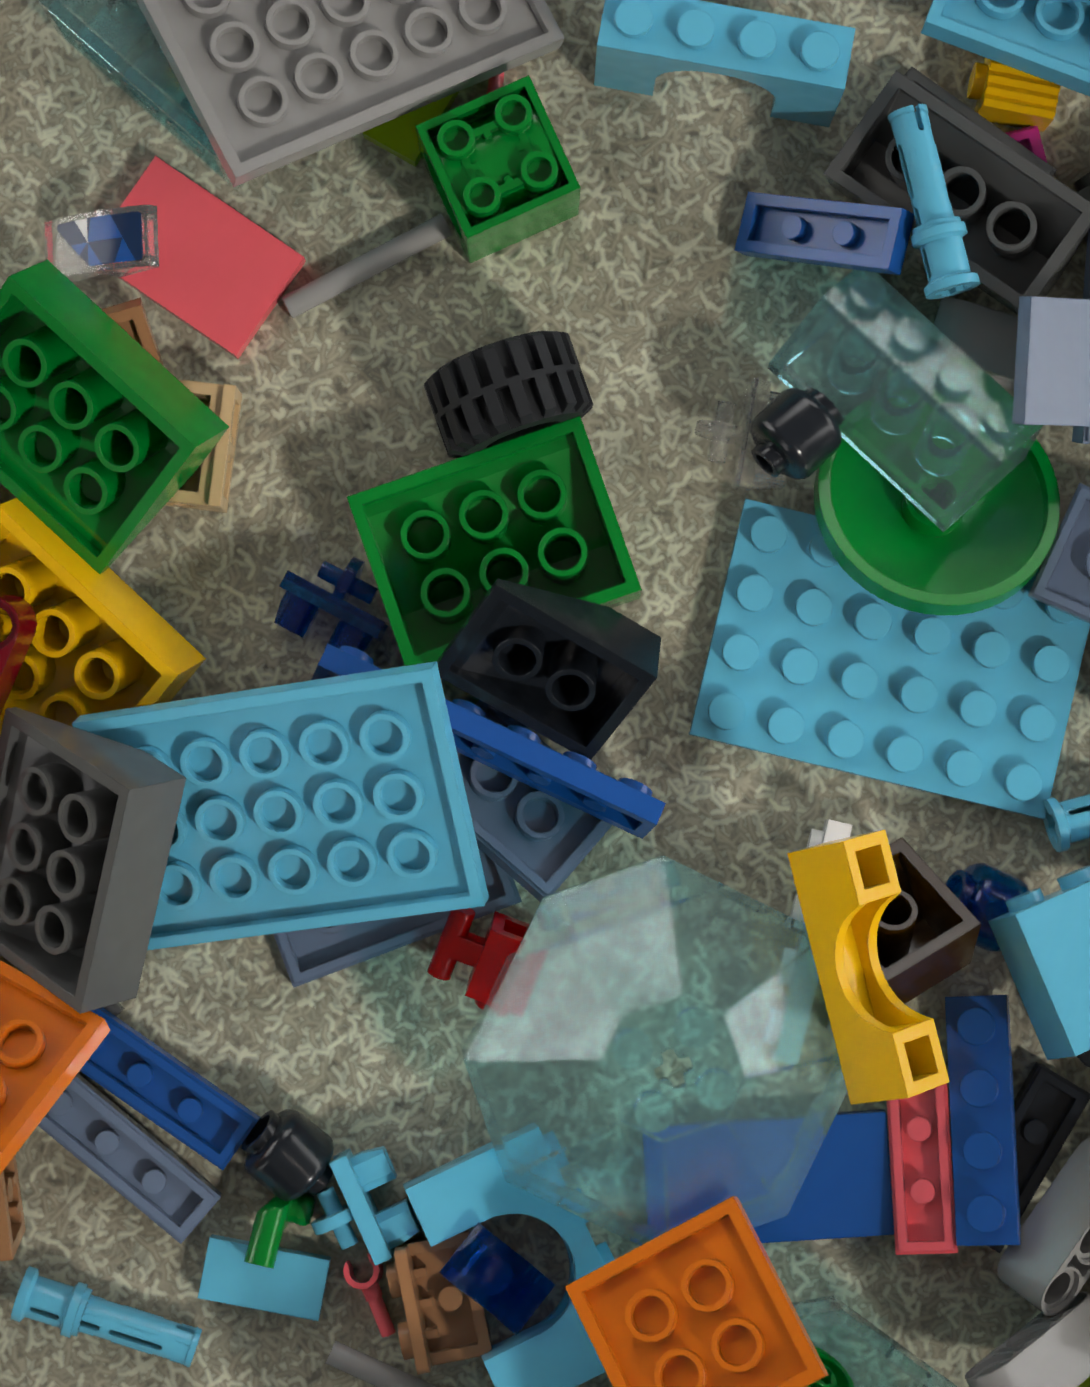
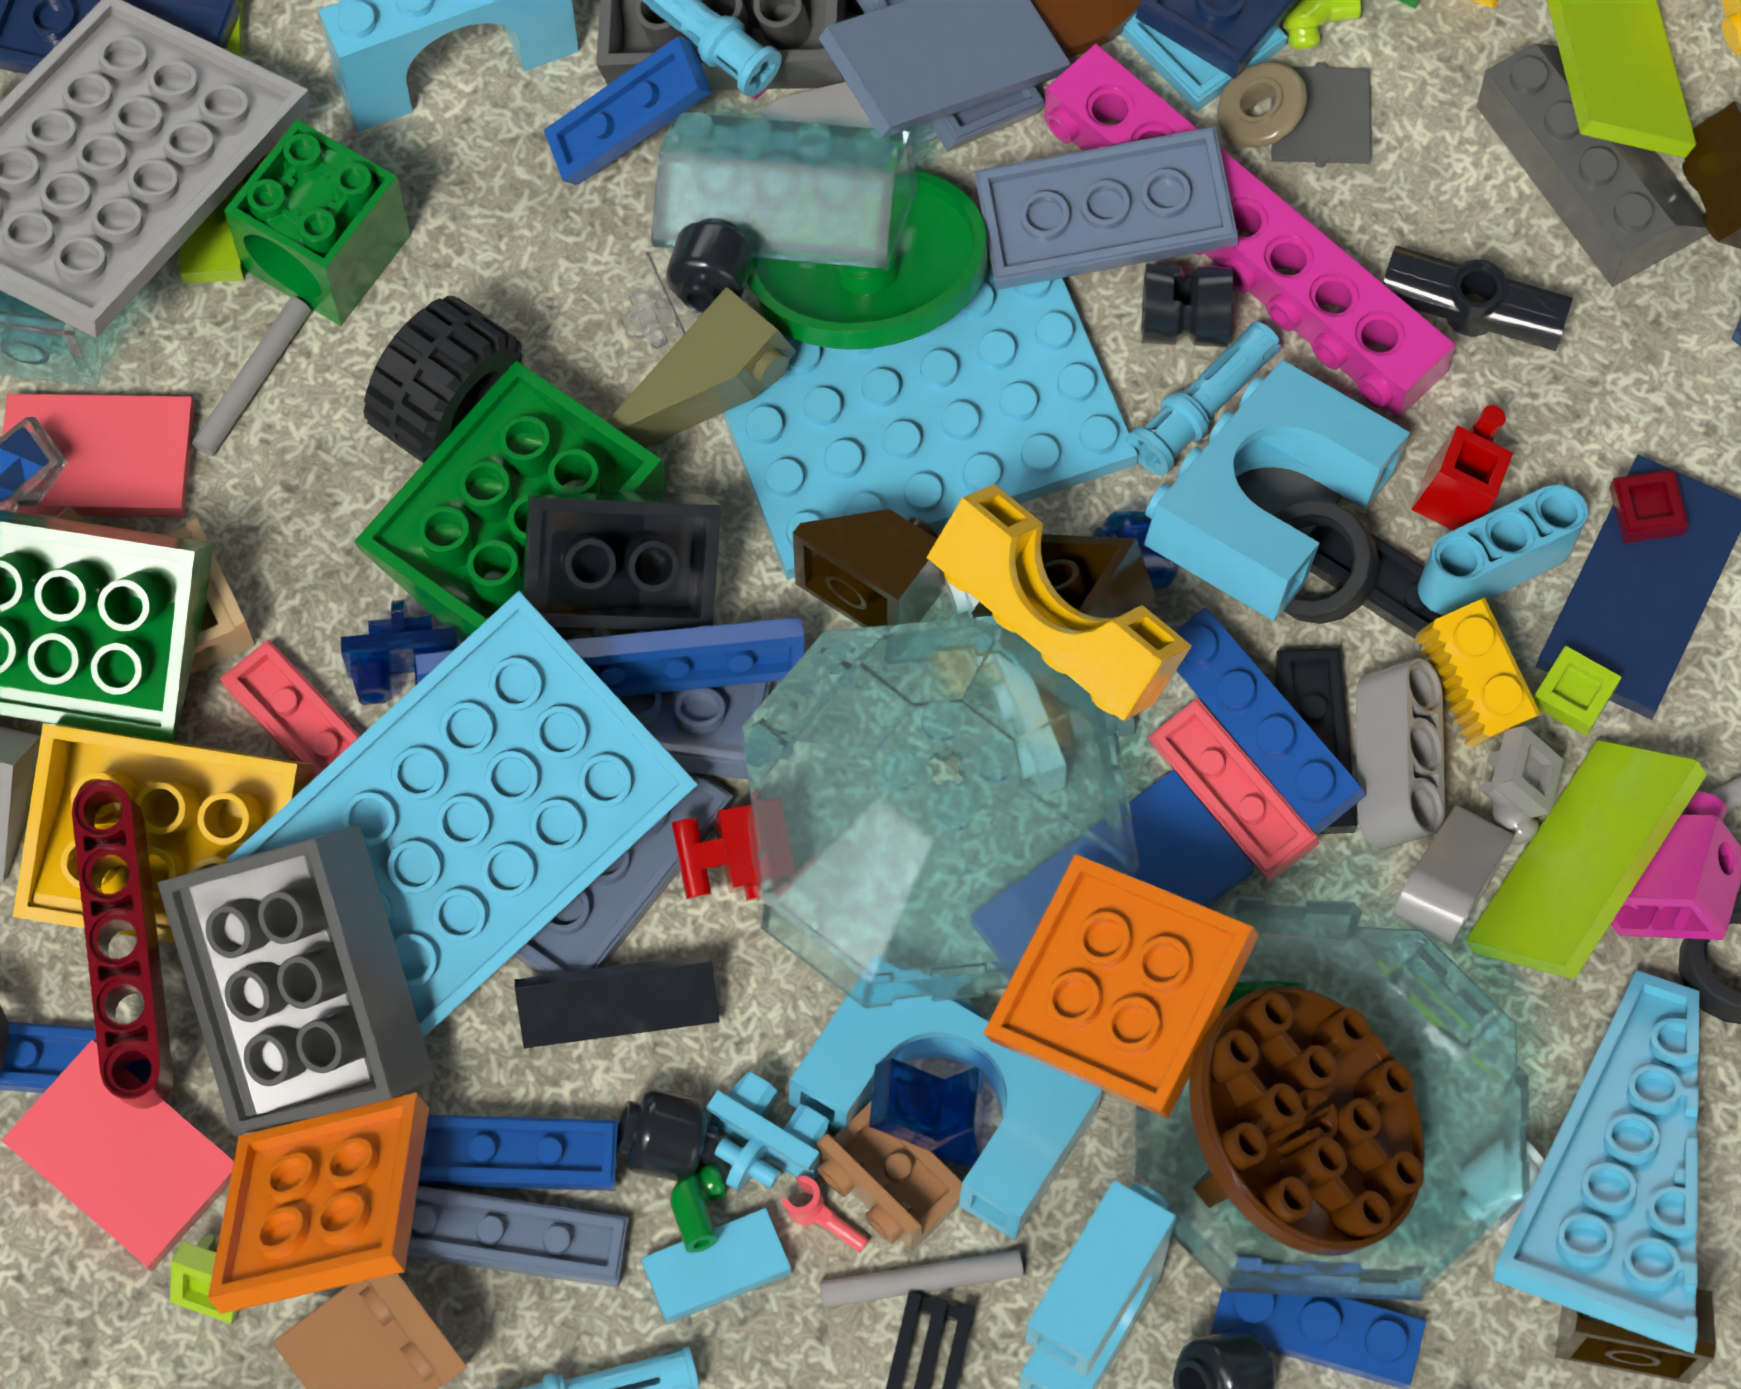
camera: 30 degrees left, 20 degrees down
(222, 608) = (288, 708): none -> coral tile
(320, 1017) = (616, 1000): none -> black tile
(747, 523) = (710, 370): none -> olive slope
(756, 796) = (869, 566): none -> dark brown slope

